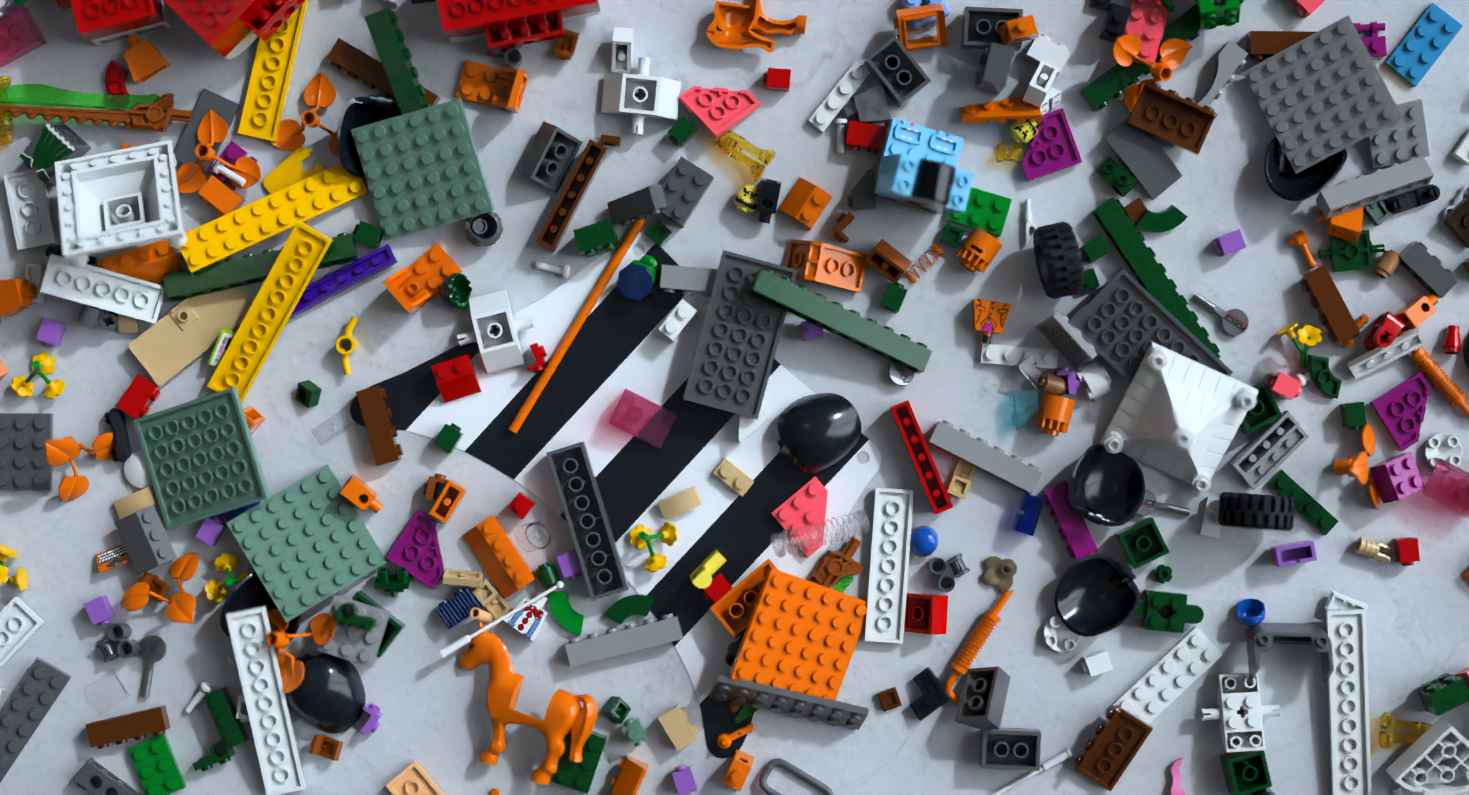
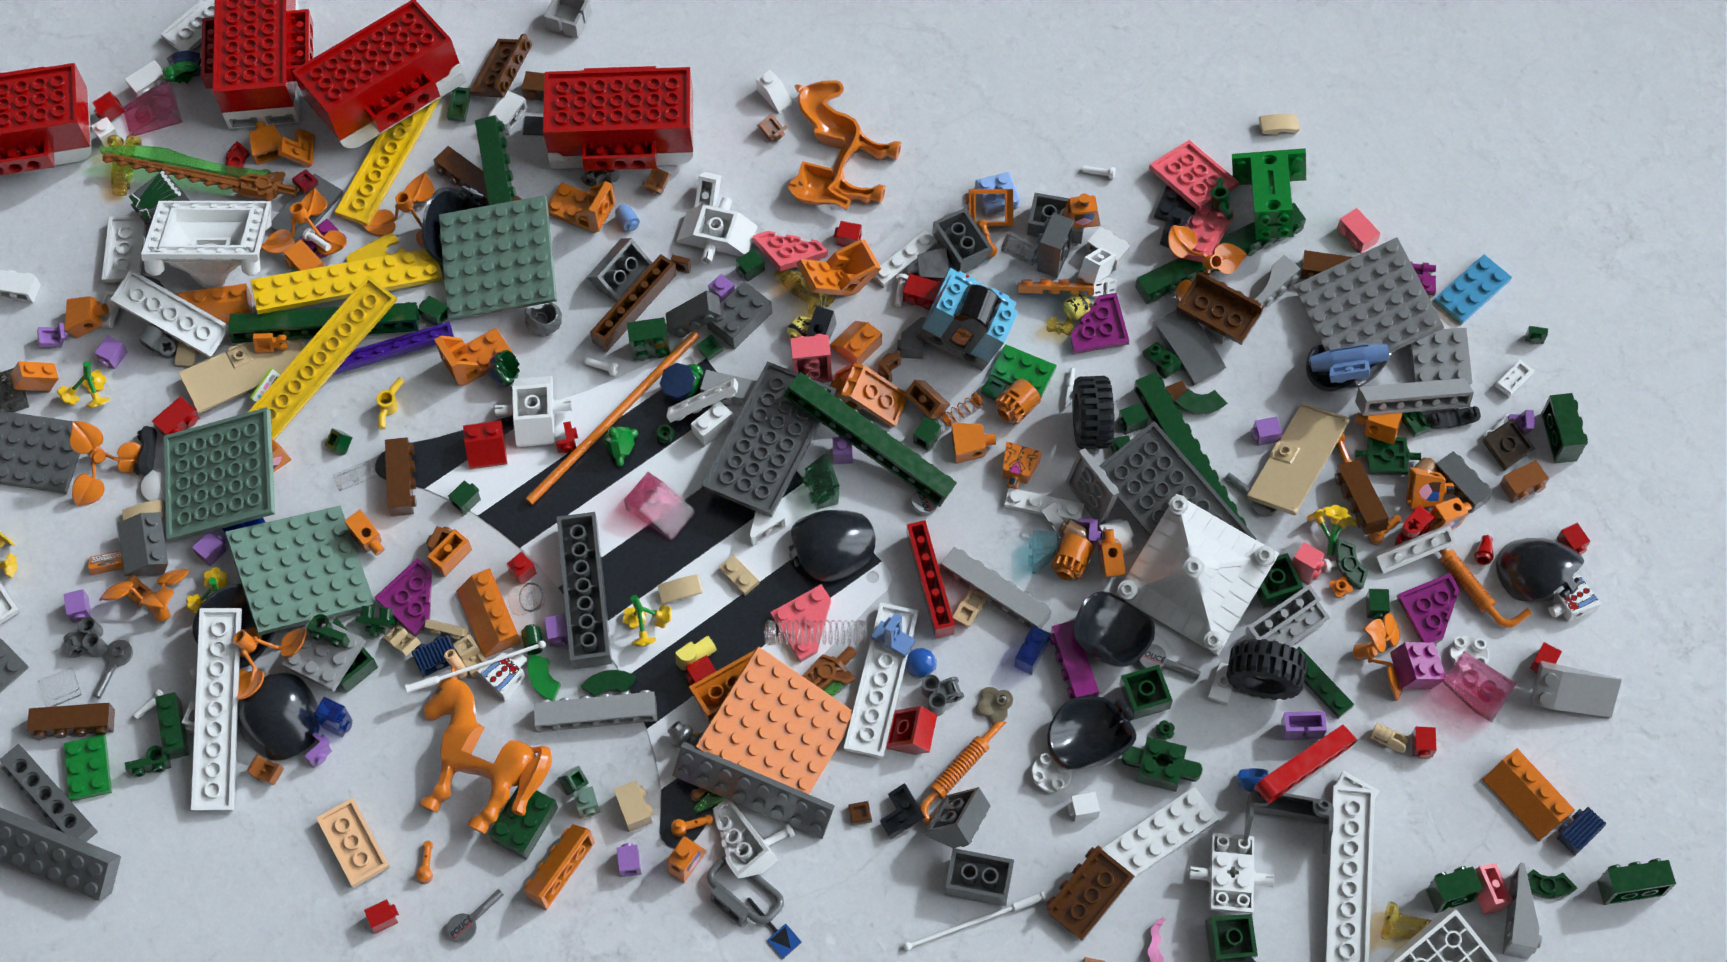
camera: 10 degrees right, 25 degrees down
(184, 64) = (300, 150): none -> orange plate
(198, 103) = (305, 181): none -> dark red plate
(209, 299) = (267, 343): none -> orange plate
(378, 688) = (333, 717): none -> clear blue piece
(422, 597) = (401, 640): none -> tan slope
(544, 93) = (627, 217): none -> medium blue brick
(590, 355) = (620, 442): none -> green rock
(637, 338) = (664, 429): none -> dark green plate
(659, 166) = (721, 287): none -> medium lavender brick
(664, 300) = (699, 401): none -> white plate
(710, 651) = (680, 733): none -> flat silver animal
(766, 239) = (812, 357): none -> coral brick
(777, 129) = (843, 272): none -> orange bracket
(788, 750) = (743, 846): none -> white wedge
(798, 371) = (822, 483): none -> clear green slope
(816, 734) = (780, 835): none -> white piece
(894, 525) = (891, 636): none -> medium blue bracket
(916, 51) = (983, 227): none -> orange piece
(937, 299) = (970, 441): none -> orange torso
(1091, 404) = (1113, 562): none -> orange torso
(1264, 270) = (1298, 459): none -> tan door
(1300, 598) = (1305, 764): none -> red beam
(1310, 170) = (1350, 361): none -> medium blue plate
(1310, 400) = (1340, 592): none -> orange plate
(1392, 286) = (1426, 488): none -> orange torso

